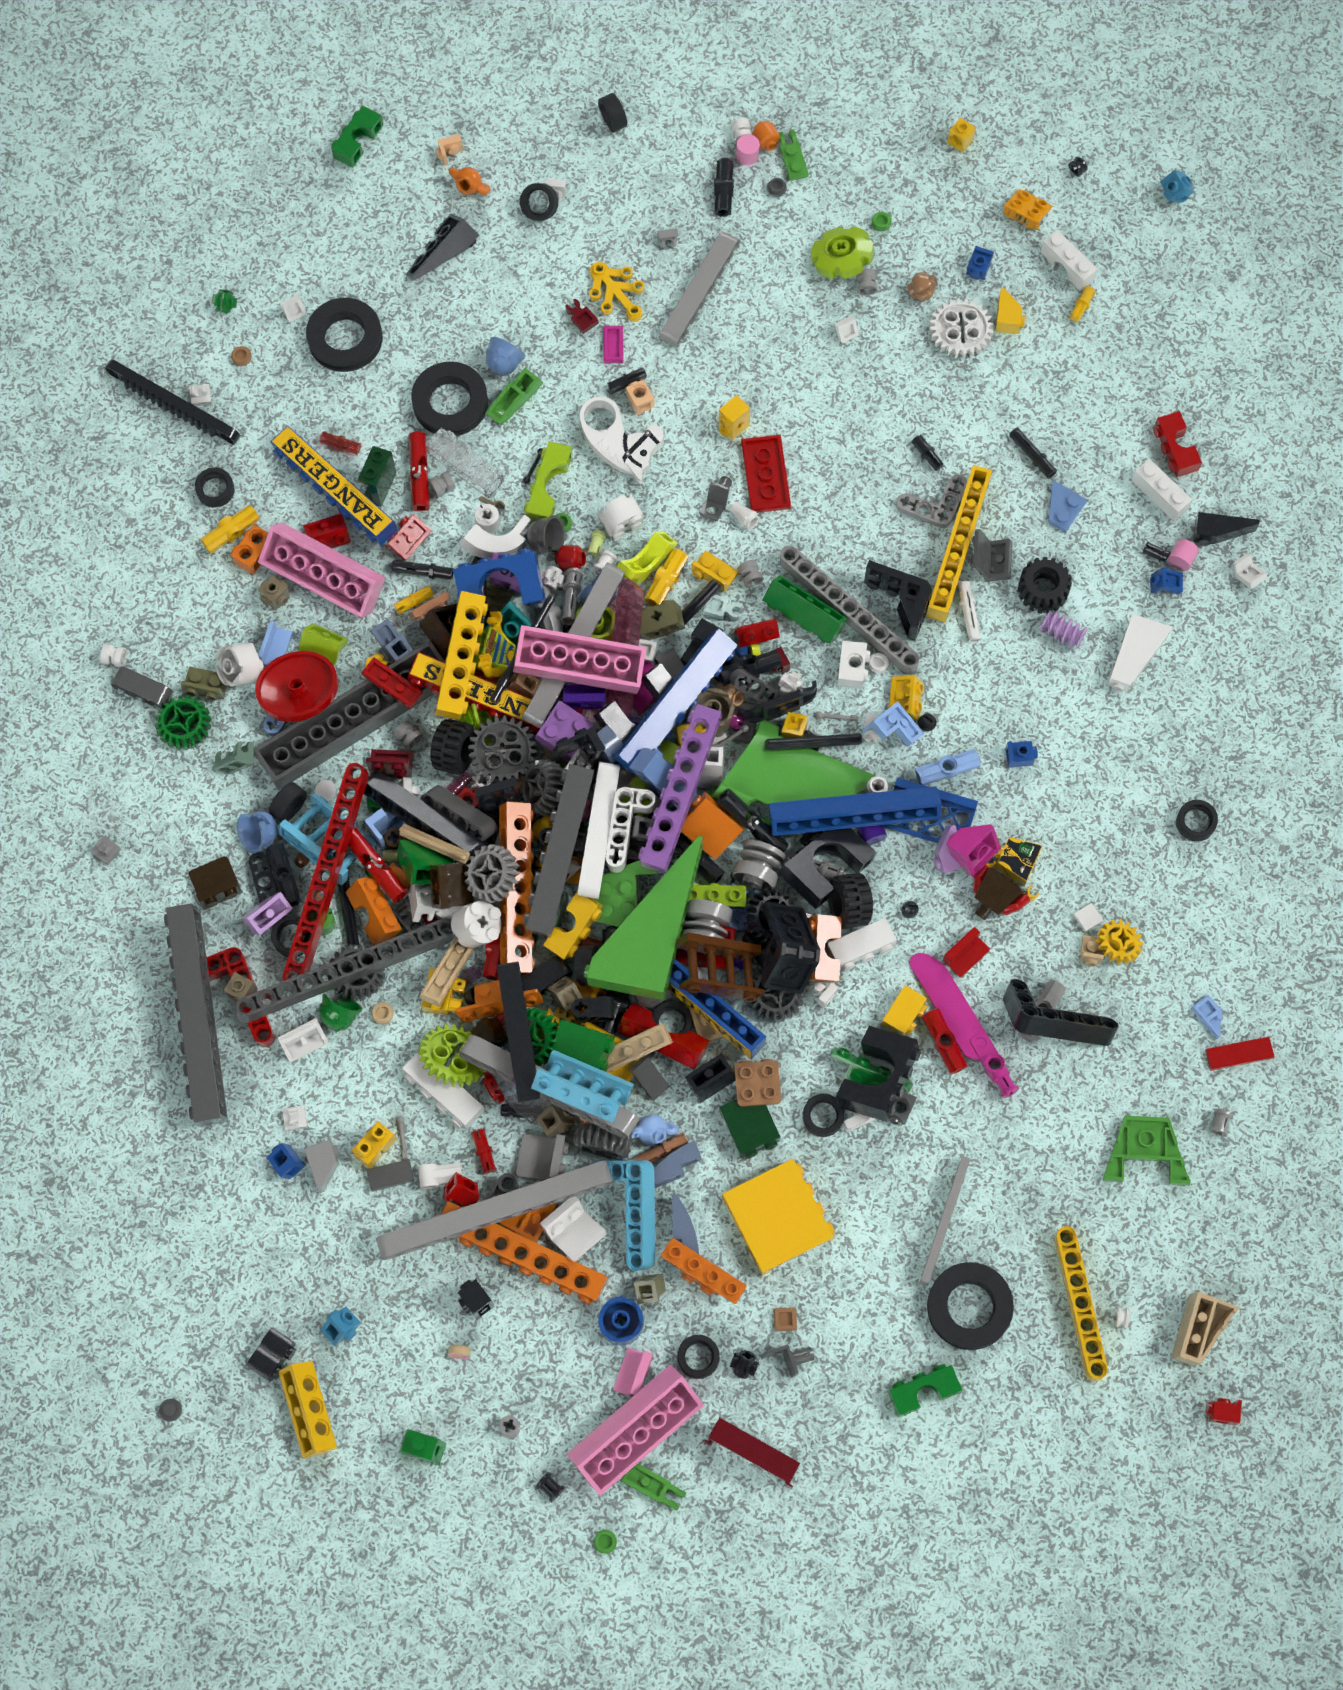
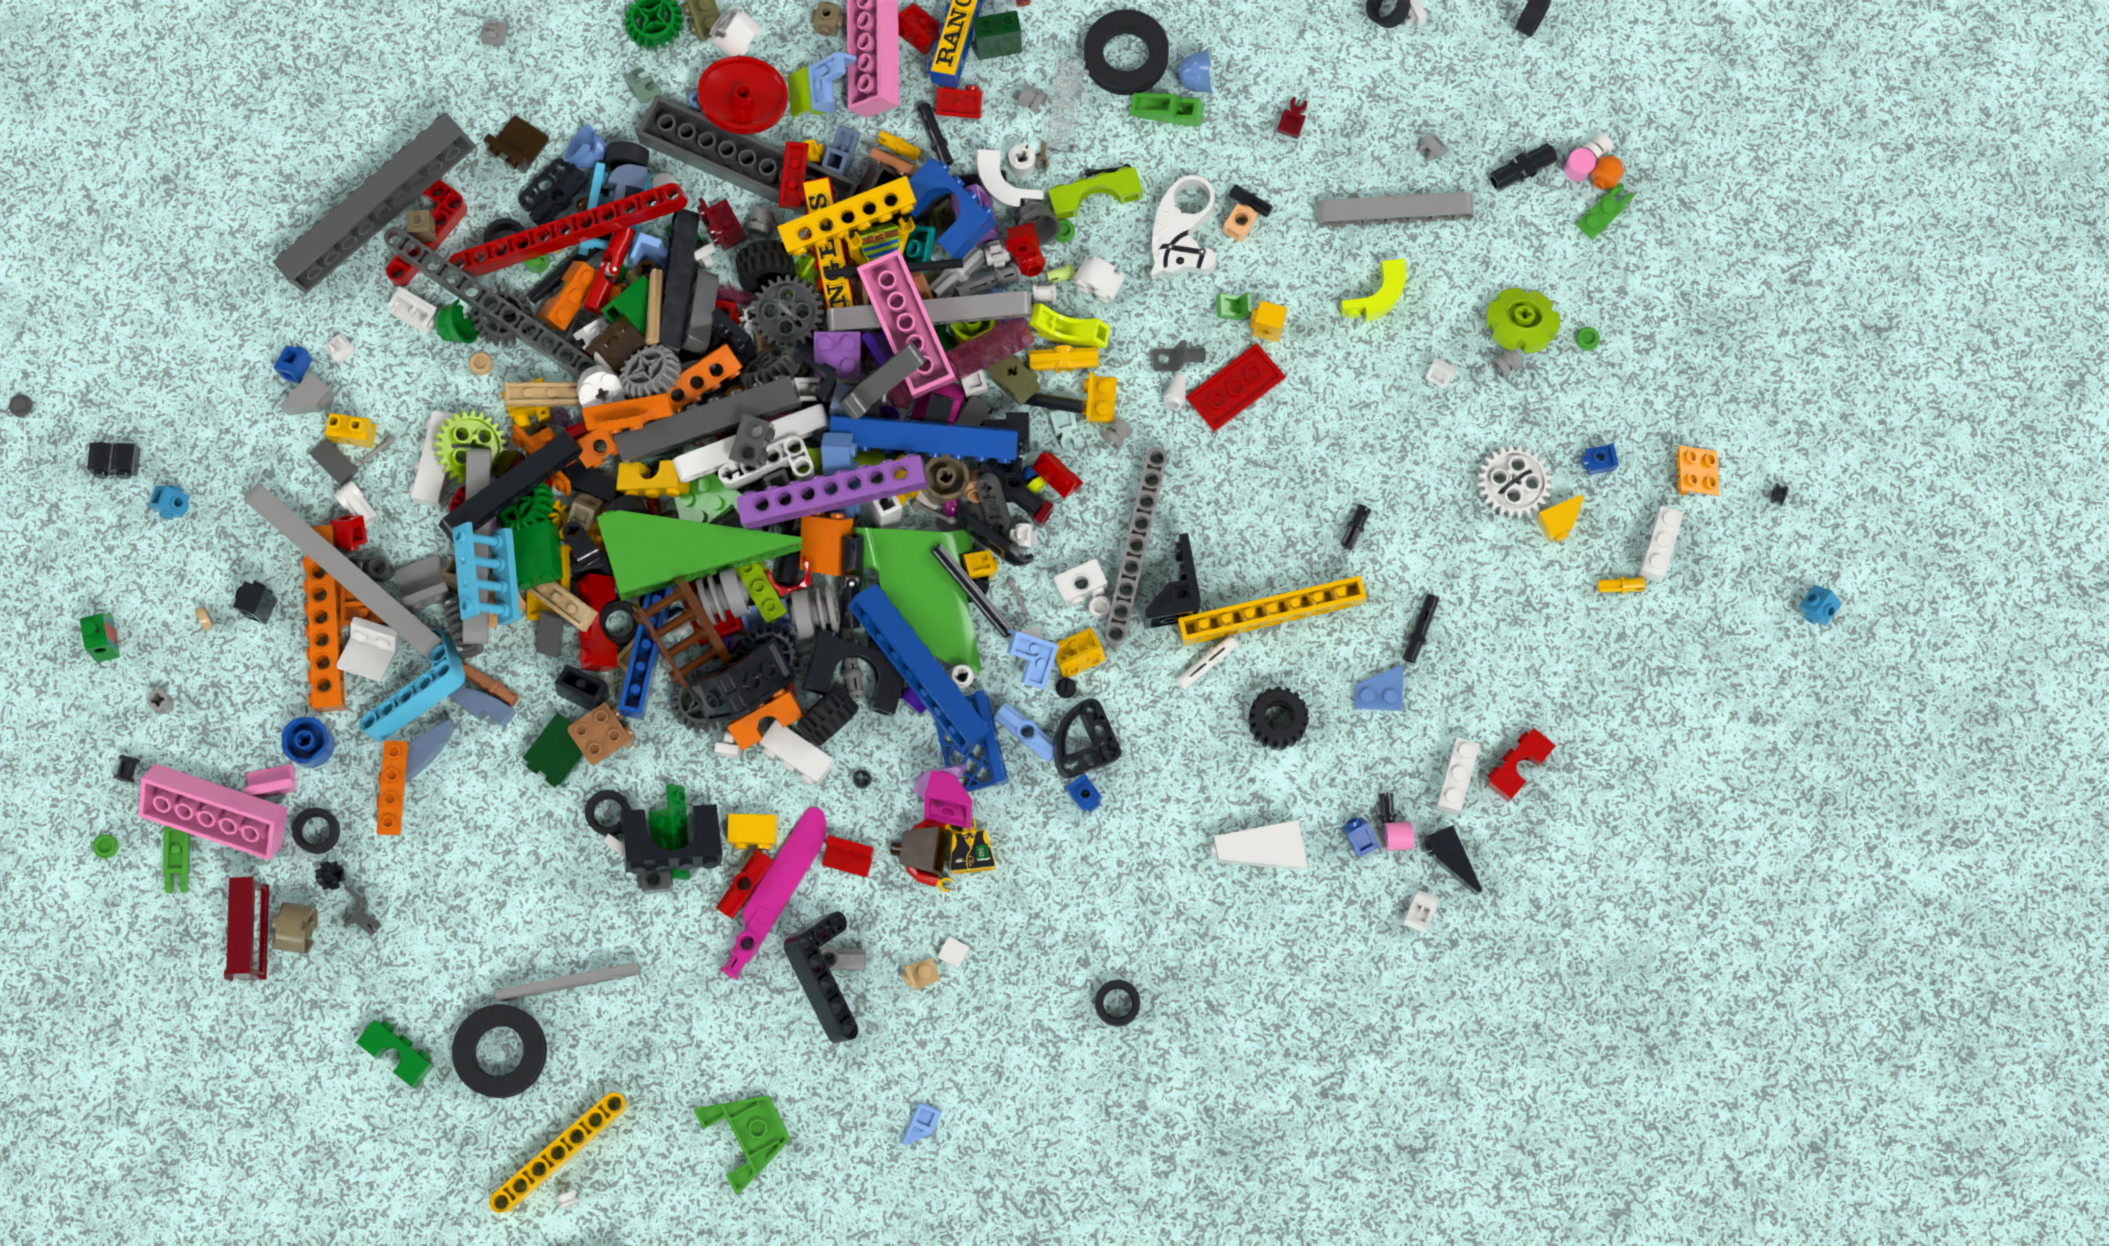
camera: 60 degrees right, 5 degrees up
(266, 913) = (509, 205): lavender slope -> none
(275, 643) = (778, 50): light blue panel -> none
(307, 1409) = (82, 506): yellow brick -> none
(310, 812) = (626, 179): none -> sand blue brick
(321, 619) = (821, 77): none -> light blue panel
(418, 469) = (1030, 72): red piece -> none
(484, 1151) = (401, 529): red pin -> none
(515, 908) = (627, 413): none -> orange bracket
(557, 549) = (1022, 240): none -> red brick
(600, 824) = (745, 440): none -> dark grey brick
(613, 344) = (1283, 166): dark pink tile -> none
(615, 288) = (1343, 130): yellow plant -> none
(617, 699) = (881, 380): none -> dark grey beam
(649, 1288) = (351, 749): olive brick -> none
(653, 1129) = (504, 666): light blue piece -> none
(703, 437) = (1234, 306): none -> bright green bracket
(729, 864) = (782, 590): none -> red cap
(758, 322) = (1393, 281): none -> neon yellow arch
(774, 1414) = (294, 928): none -> dark tan brick
(776, 187) = (1558, 217): dark grey plate -> none
(778, 1216) = (486, 827): yellow panel -> none
(785, 1319) = (395, 889): medium nougat tile -> none
(804, 609) = (1108, 504): green brick -> none
(922, 286) = (1535, 418): medium nougat piece -> none
(935, 510) = (1297, 568): light grey beam -> none
(961, 135) = (1736, 359): yellow brick -> none
(992, 558) = (1276, 649): dark grey bracket -> none
(993, 725) = (1097, 750): none -> black beam
(1063, 629) = (1241, 762): lavender piece -> none
(1119, 942) = (938, 986): yellow gear -> none
(1220, 1122) = (815, 1191): light grey bush -> none
(1239, 1053) = (898, 1173): red tile -> none

